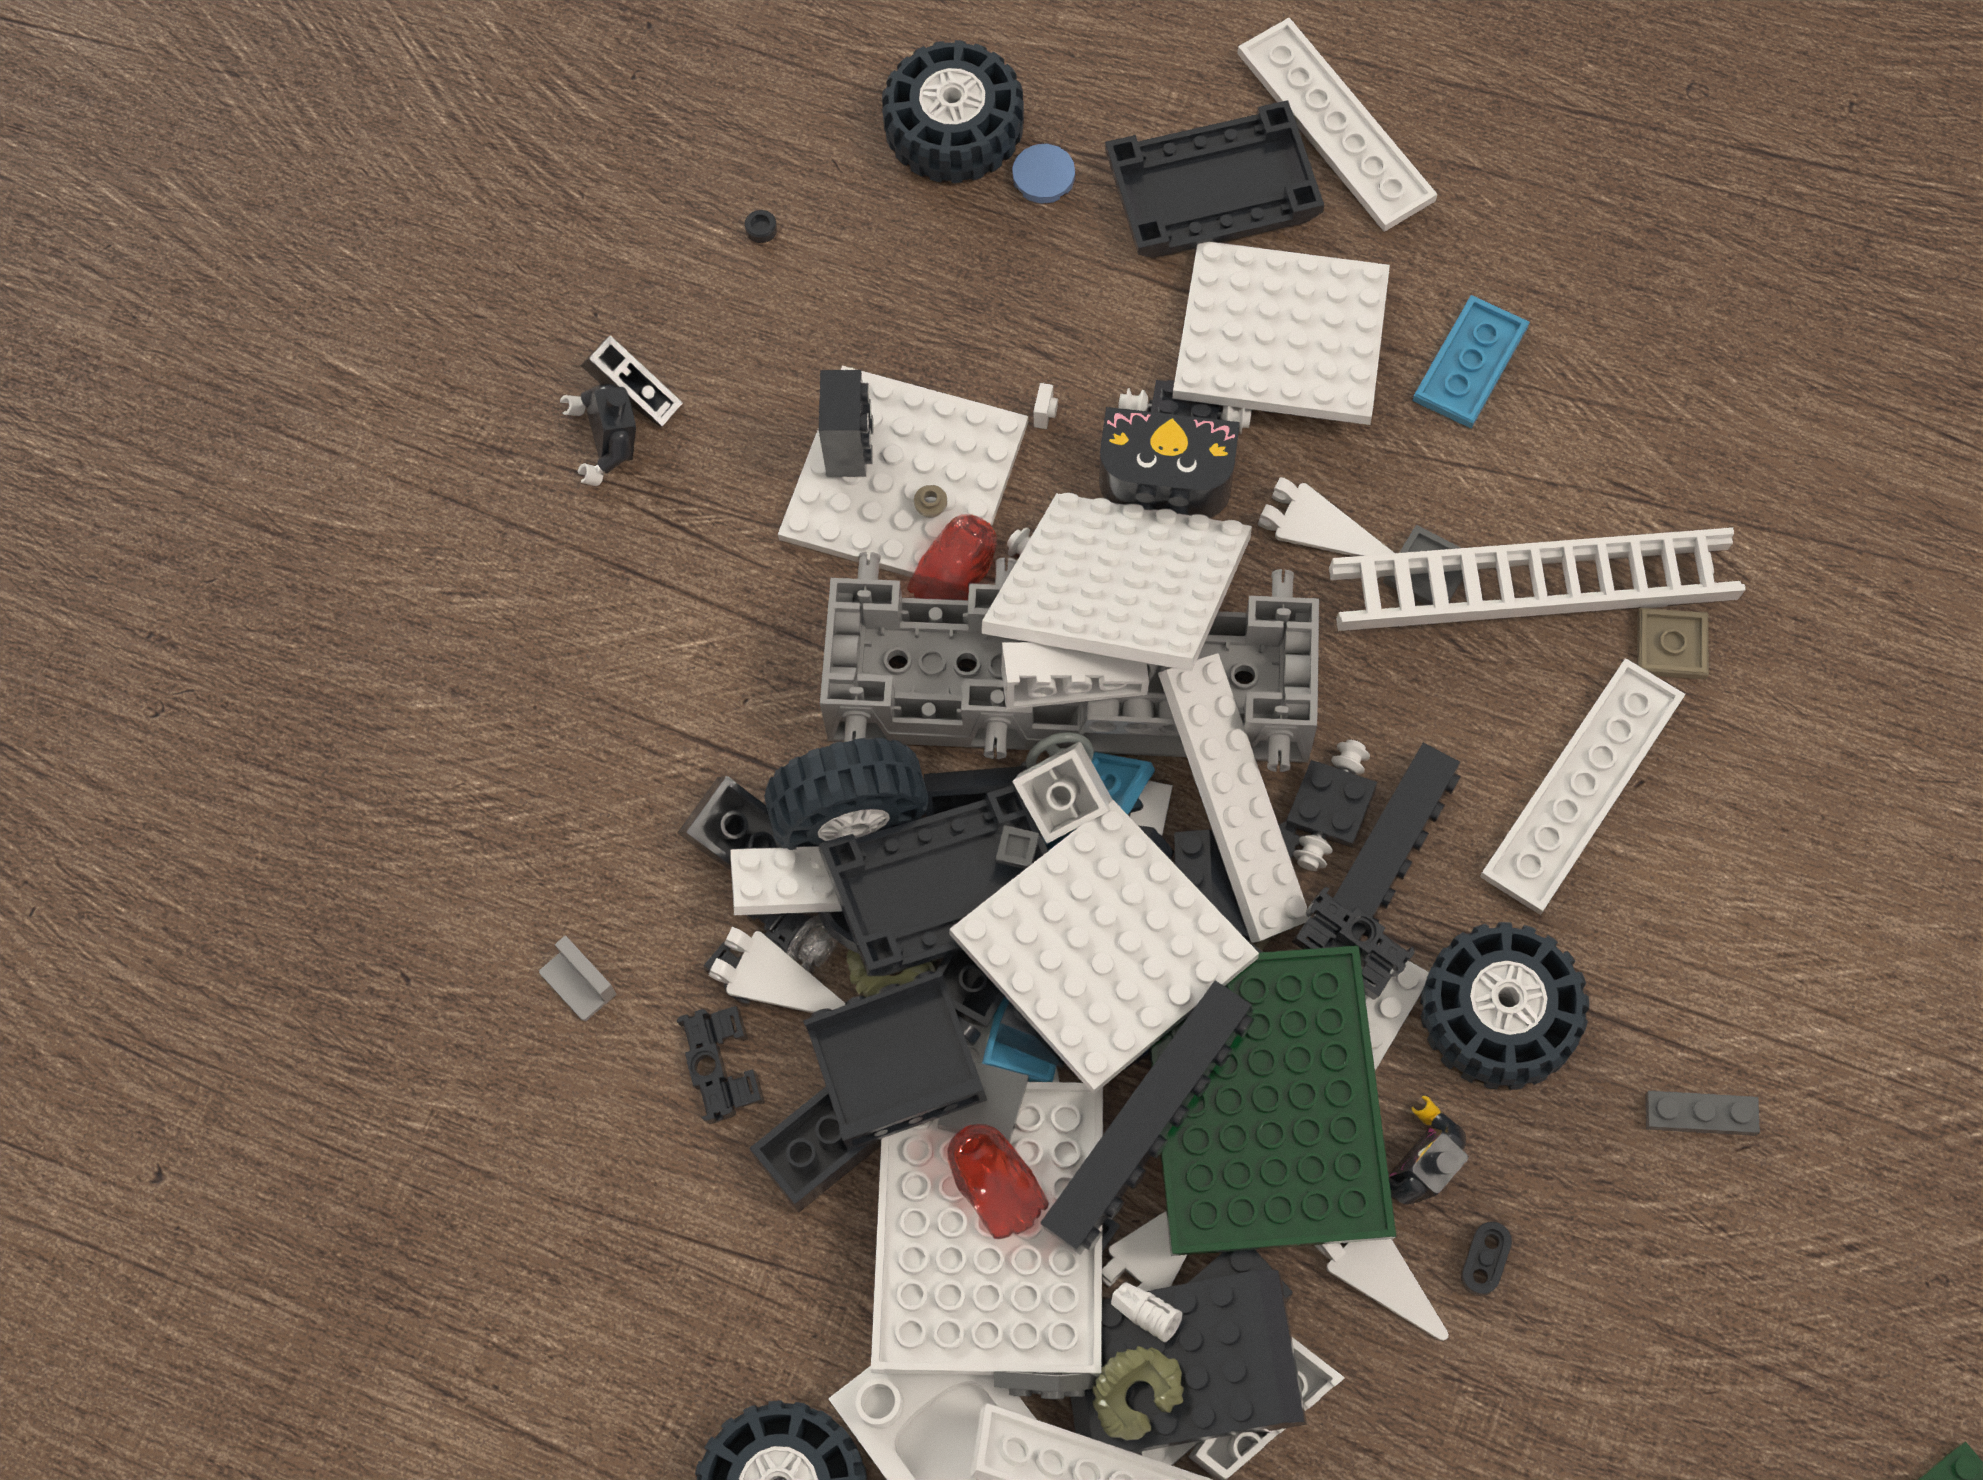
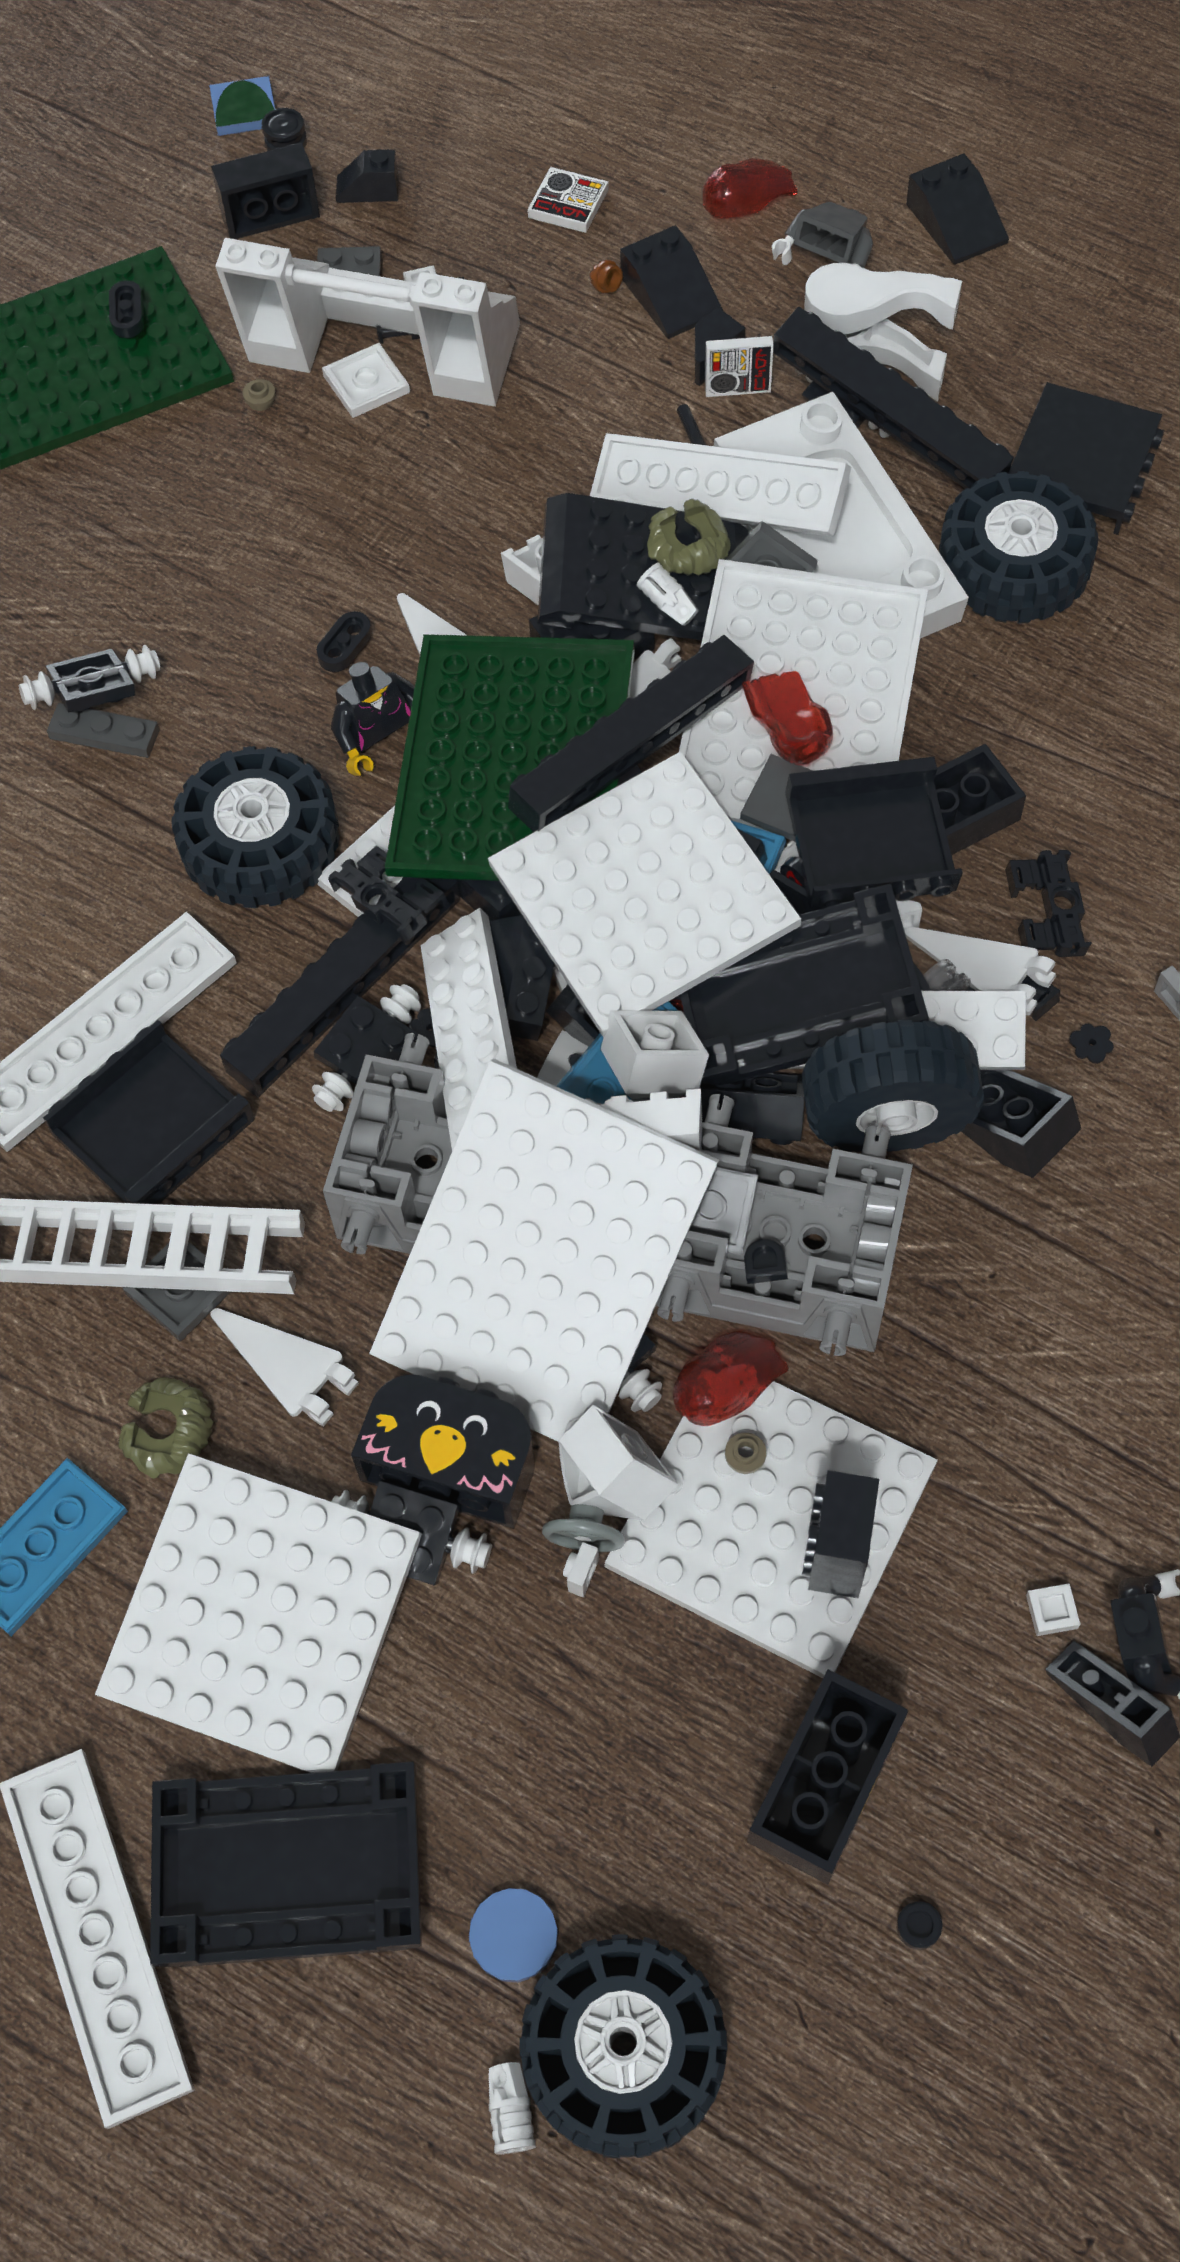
camera: 170 degrees left, 5 degrees down
(669, 916) = (1098, 1037): none -> black plant
(679, 439) = (1053, 1609): none -> white plate
(836, 271) = (827, 1776): none -> black brick
(935, 625) = (765, 1262): none -> black tile
(977, 656) = (727, 1207): none -> tile
(1017, 847) = (714, 1002): dark grey plate -> none
(1021, 61) = (510, 2109): none -> white hinge
(1034, 455) = (609, 1474): none -> white piece
(1387, 475) = (191, 1431): none -> olive piece
(1505, 710) = (148, 1118): none -> black panel
(1734, 1155) = (90, 679): none -> black plate

